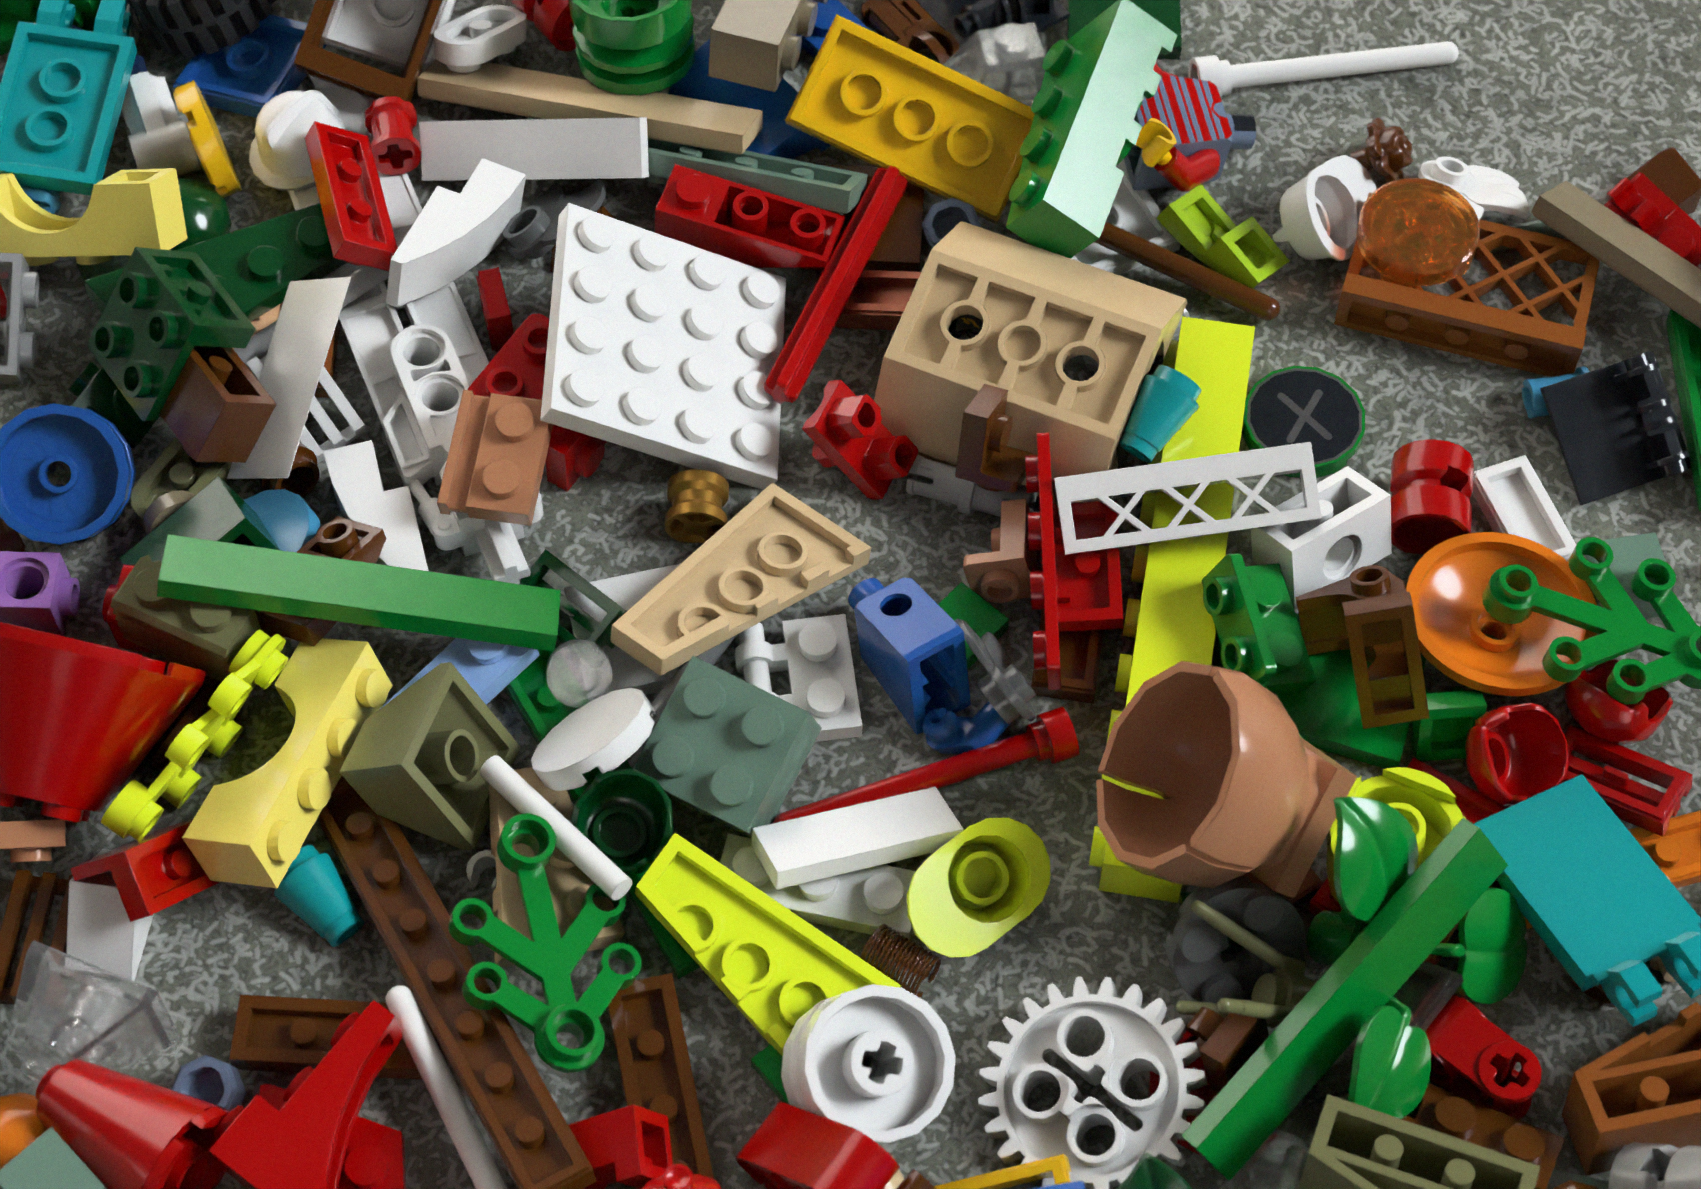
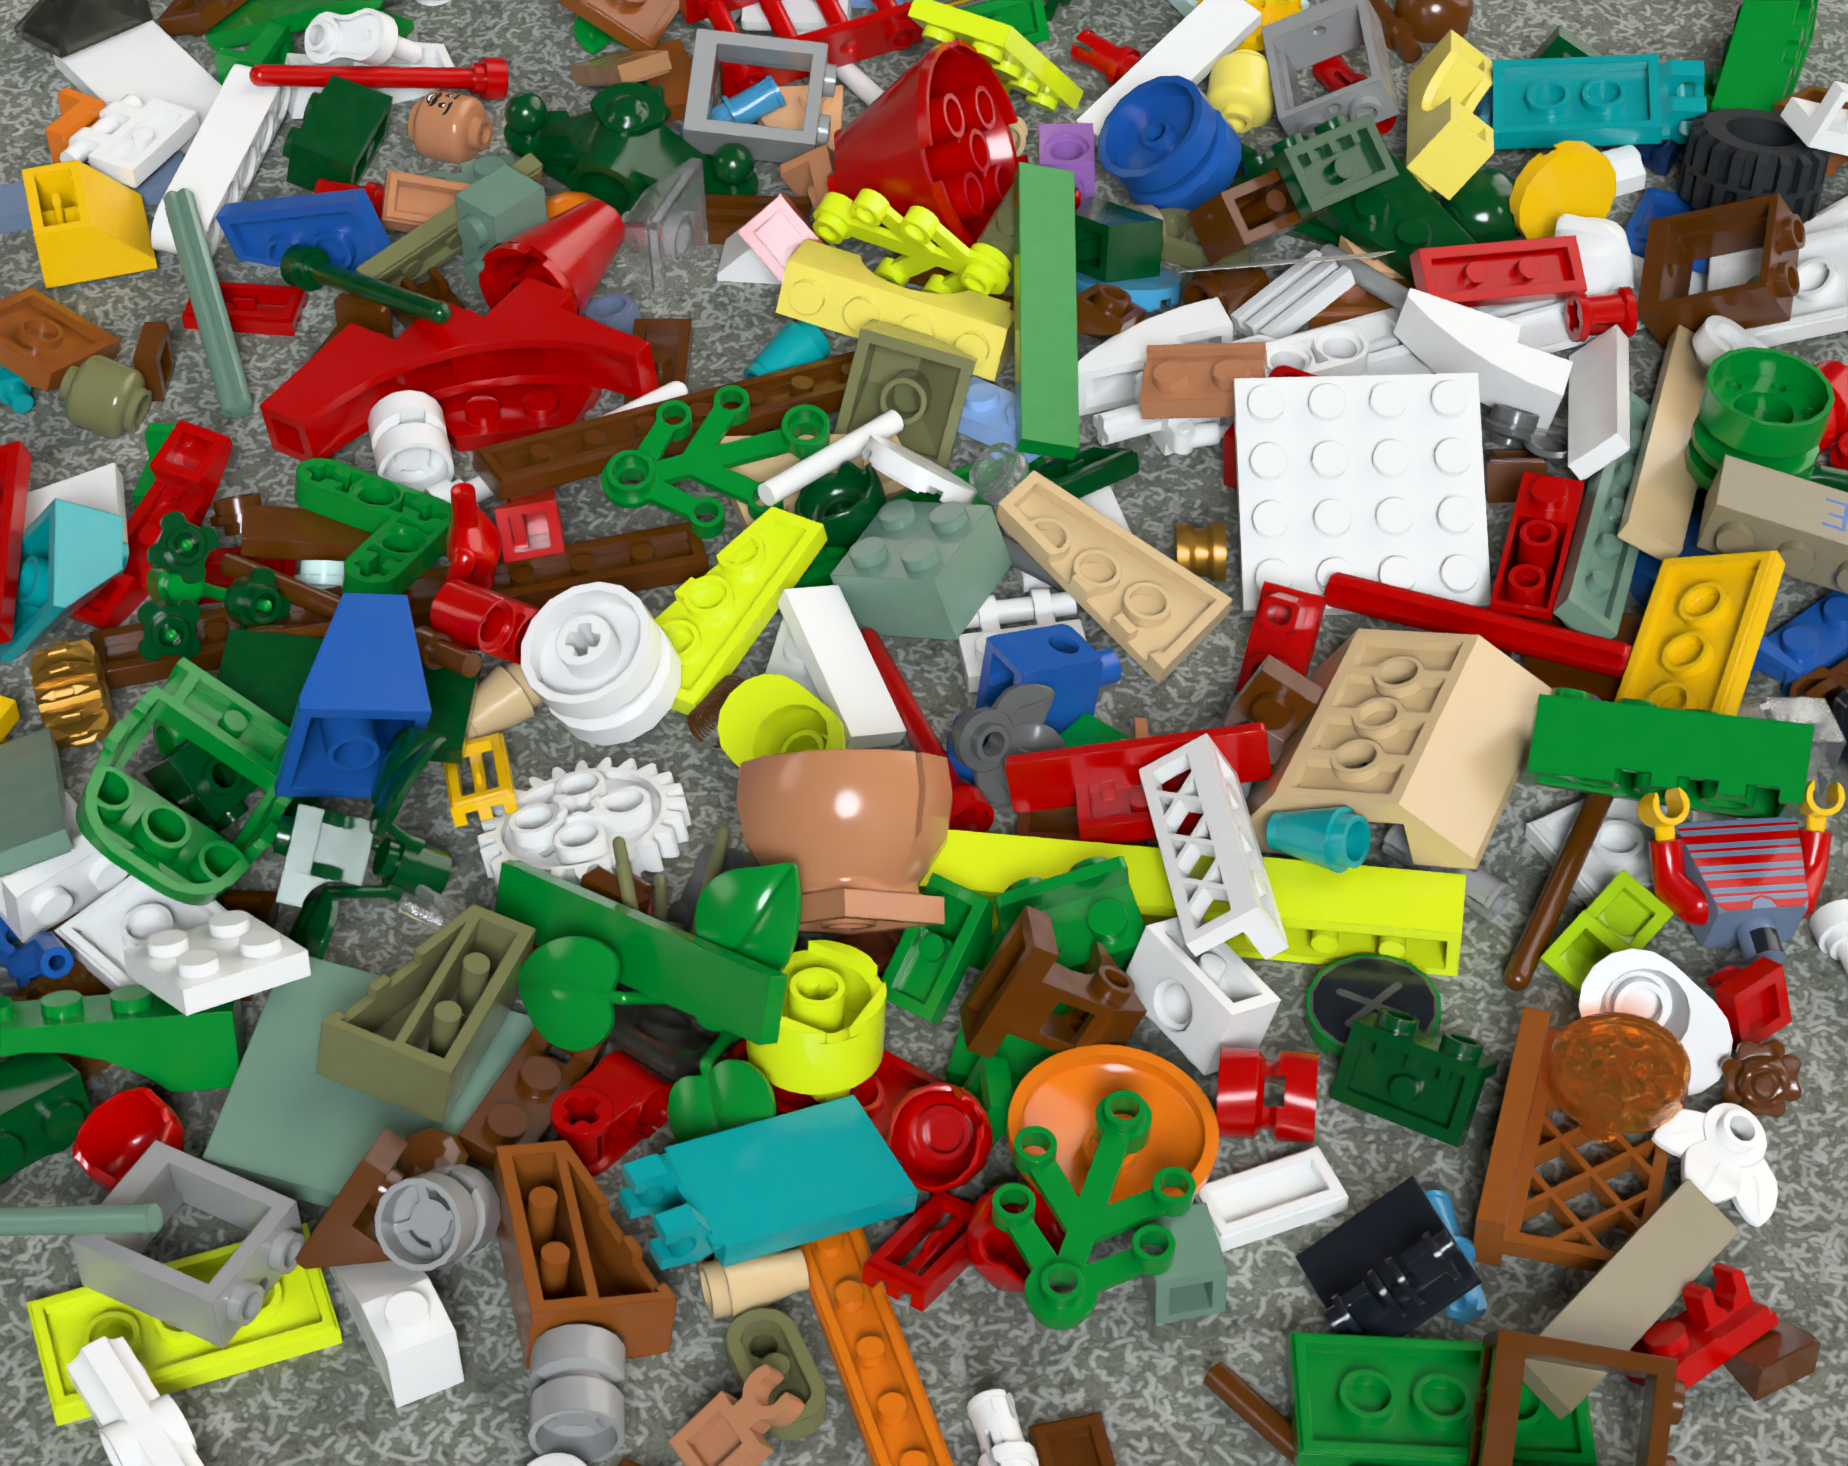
camera: 90 degrees right, 15 degrees down
(1298, 147) = (1752, 999): none -> red tile
(1395, 385) = (1413, 1075): none -> dark green bracket

